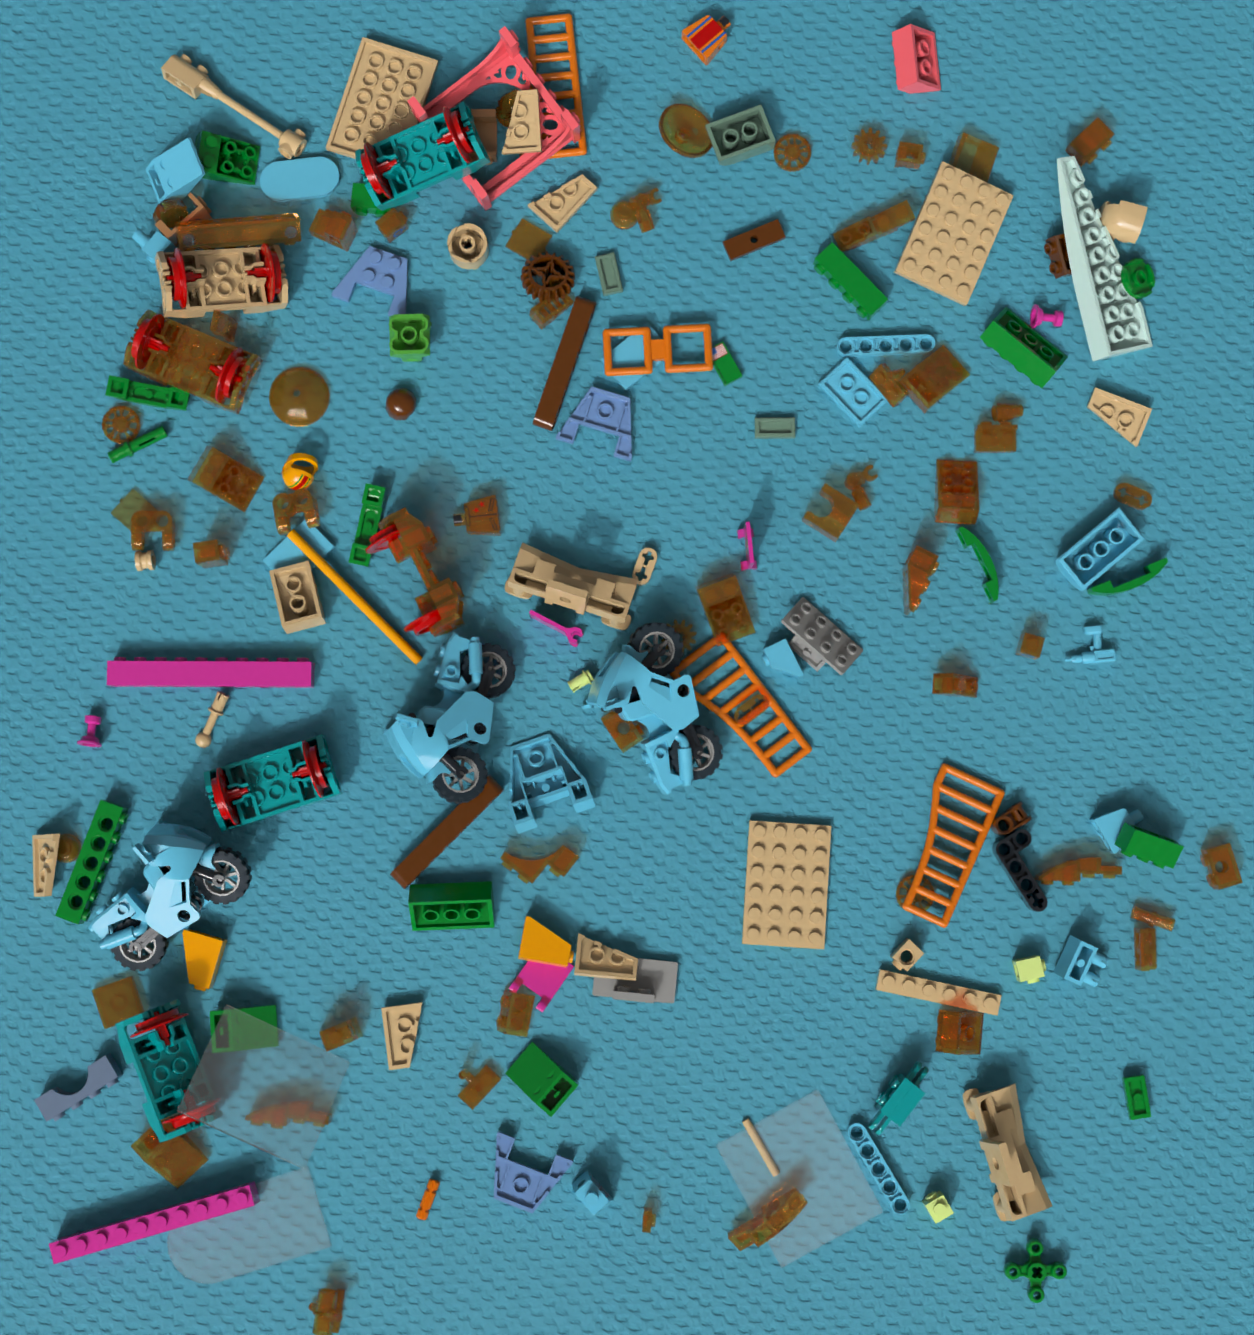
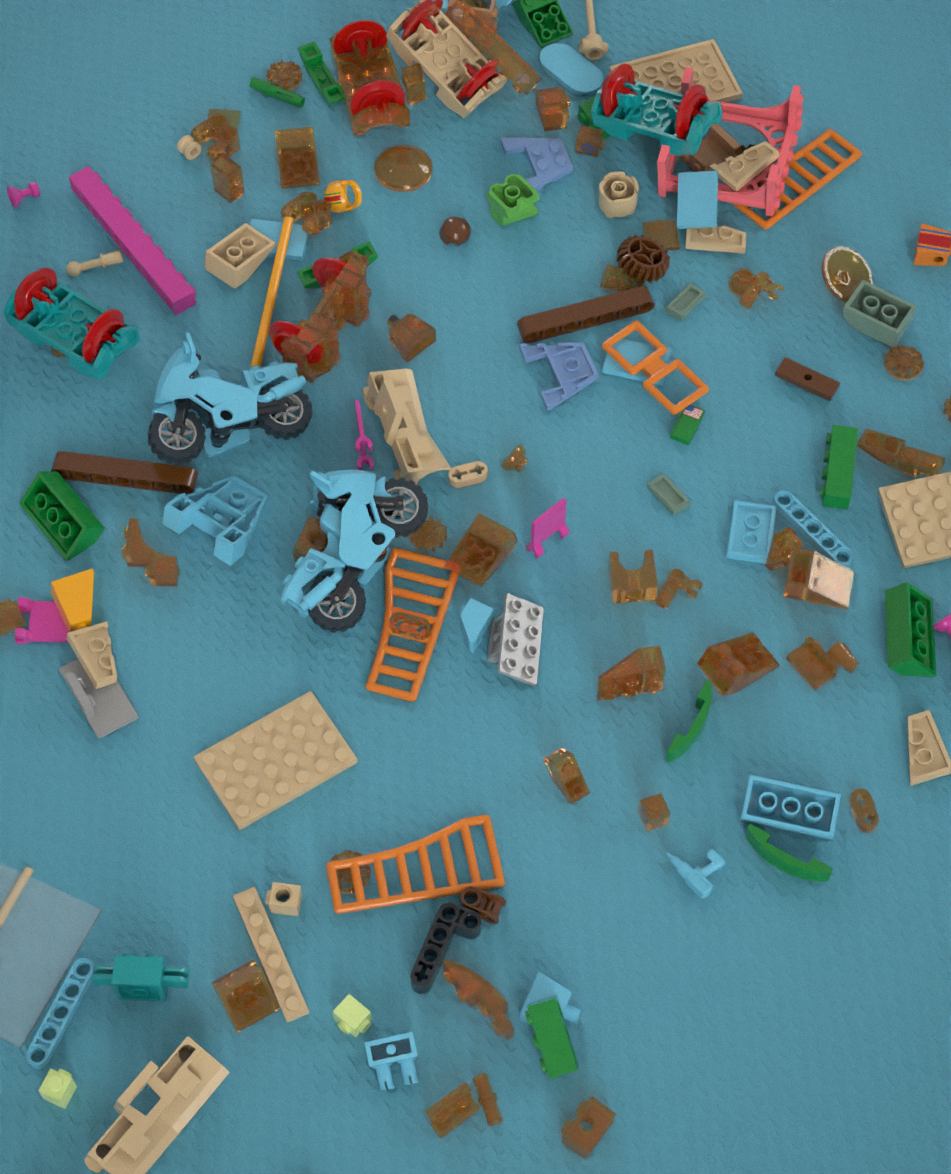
camera: 50 degrees right, 25 degrees down
(526, 189) = (697, 199): none -> medium azure tile
(659, 521) = (516, 459): none -> clear orange piece

